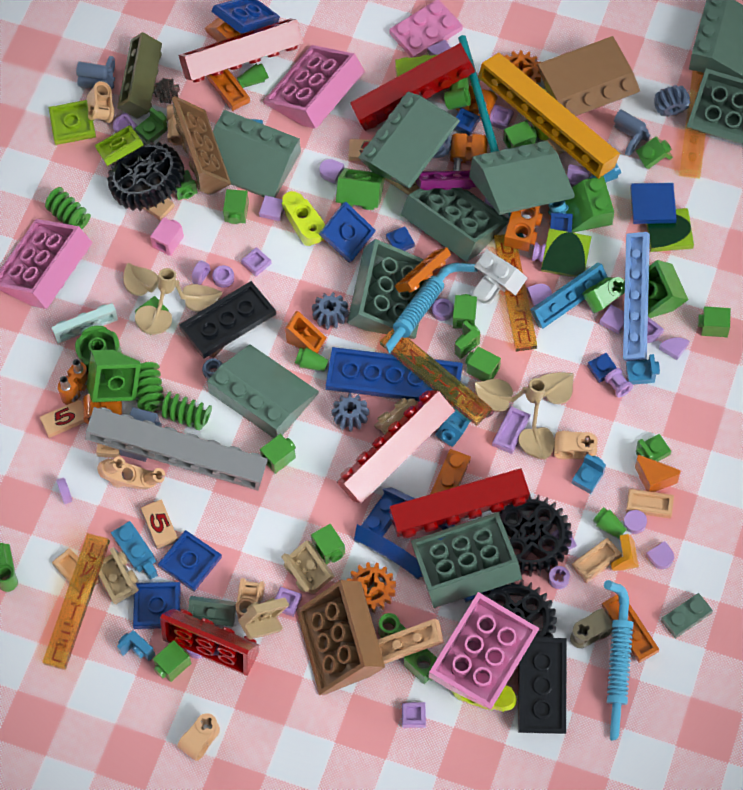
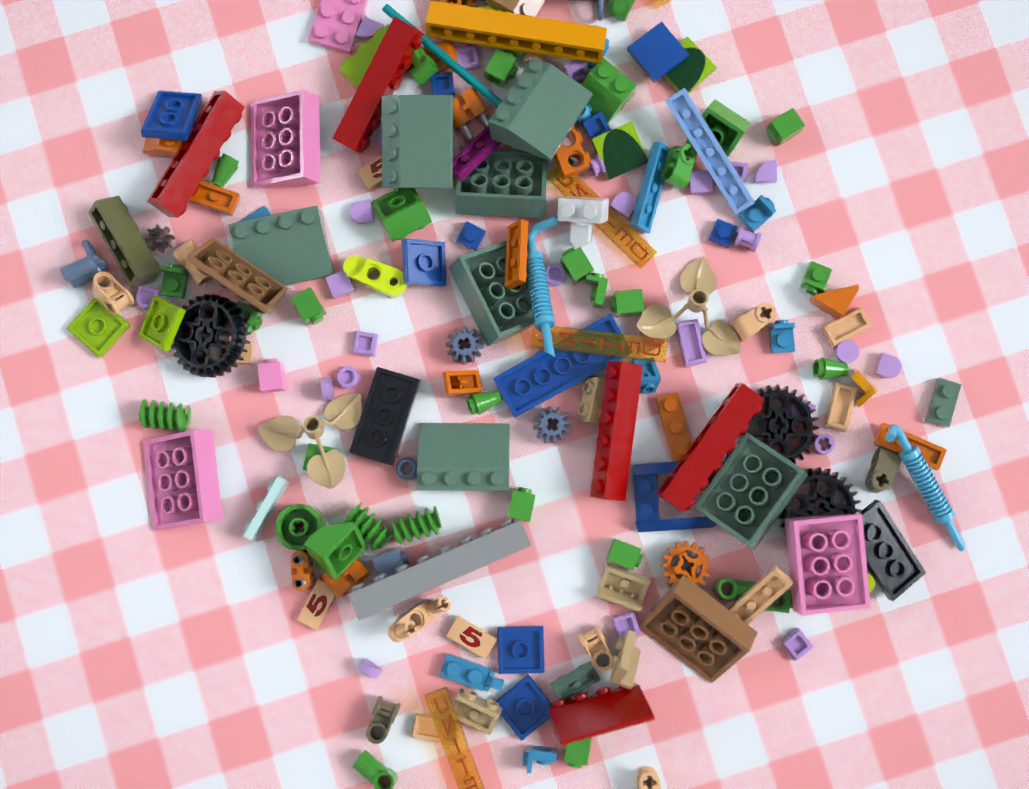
camera: 40 degrees left, 20 degrees up
(41, 530) = (382, 718): none -> dark tan piece

